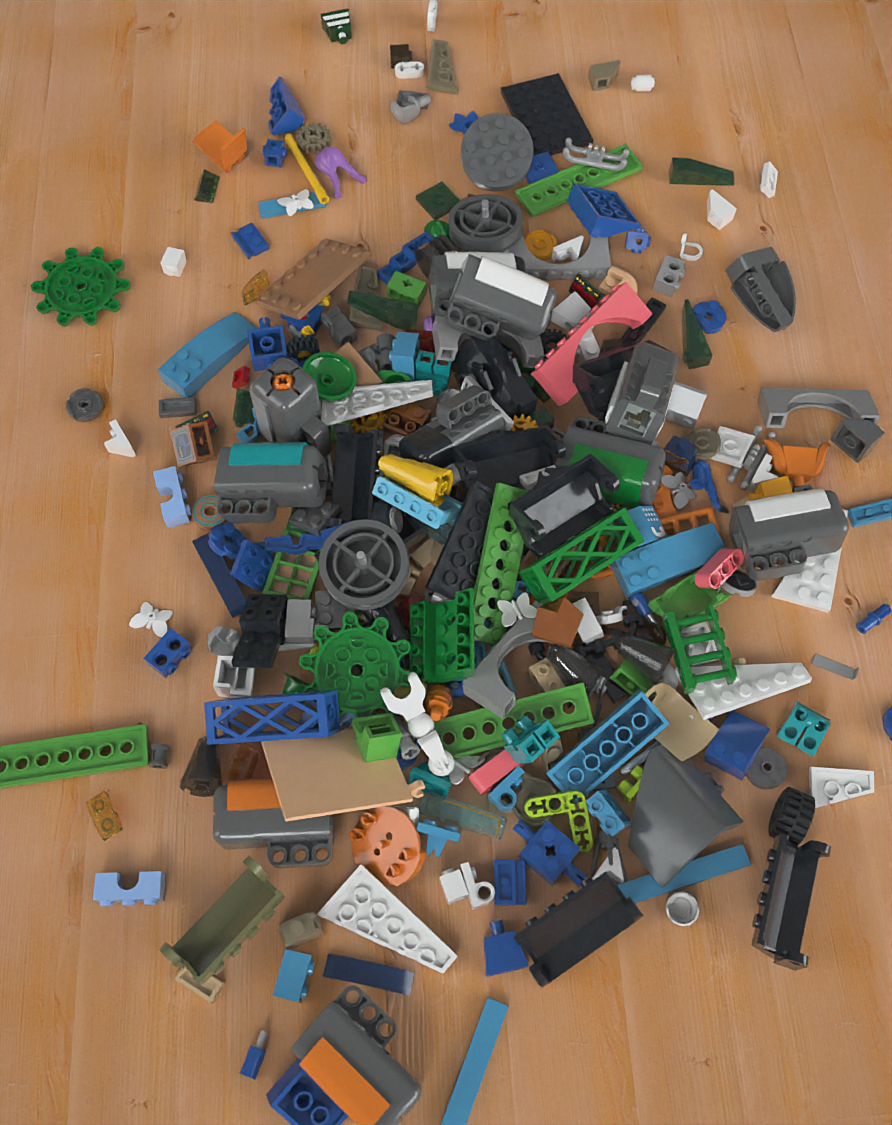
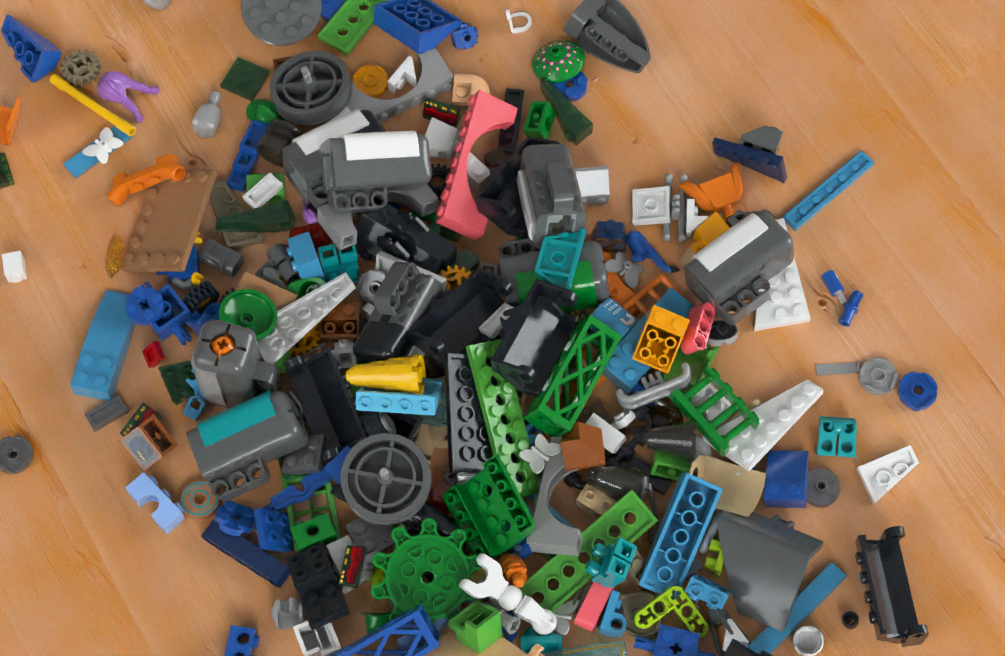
camera: 25 degrees left, 0 degrees up
(119, 443) = (73, 475): white slope -> none
(151, 617) = (202, 624): white piece -> none
(248, 325) = (144, 295): none -> blue plate
(250, 240) = (78, 208): blue plate -> none
(274, 153) = (50, 102): blue brick -> none
(294, 237) = (124, 185): none -> orange plate
(294, 589) = (319, 522): none -> green brick
(299, 628) = (352, 566): none -> slope
(391, 215) = (208, 117): none -> light grey piece
(401, 288) = (263, 191): none -> white tile
(622, 447) = (560, 258): none -> teal wing
(652, 603) = (655, 389): none -> light grey piece
(667, 331) = (539, 120): none -> green brick
(668, 276) = (511, 59): light grey brick -> none
(679, 560) = (660, 339): none -> light orange slope
(706, 441) = (626, 211): dark tan tile -> none
(708, 293) = (558, 61): none -> green dish
(734, 905) = (848, 617): none -> black hinge
(778, 402) = (739, 113): light grey arch -> none
(792, 815) = (860, 516): black tyre -> none
(846, 448) = (757, 160): none -> dark blue wing
(867, 591) = (834, 285): none -> blue piece
(871, 692) = (878, 376): none -> light grey tile

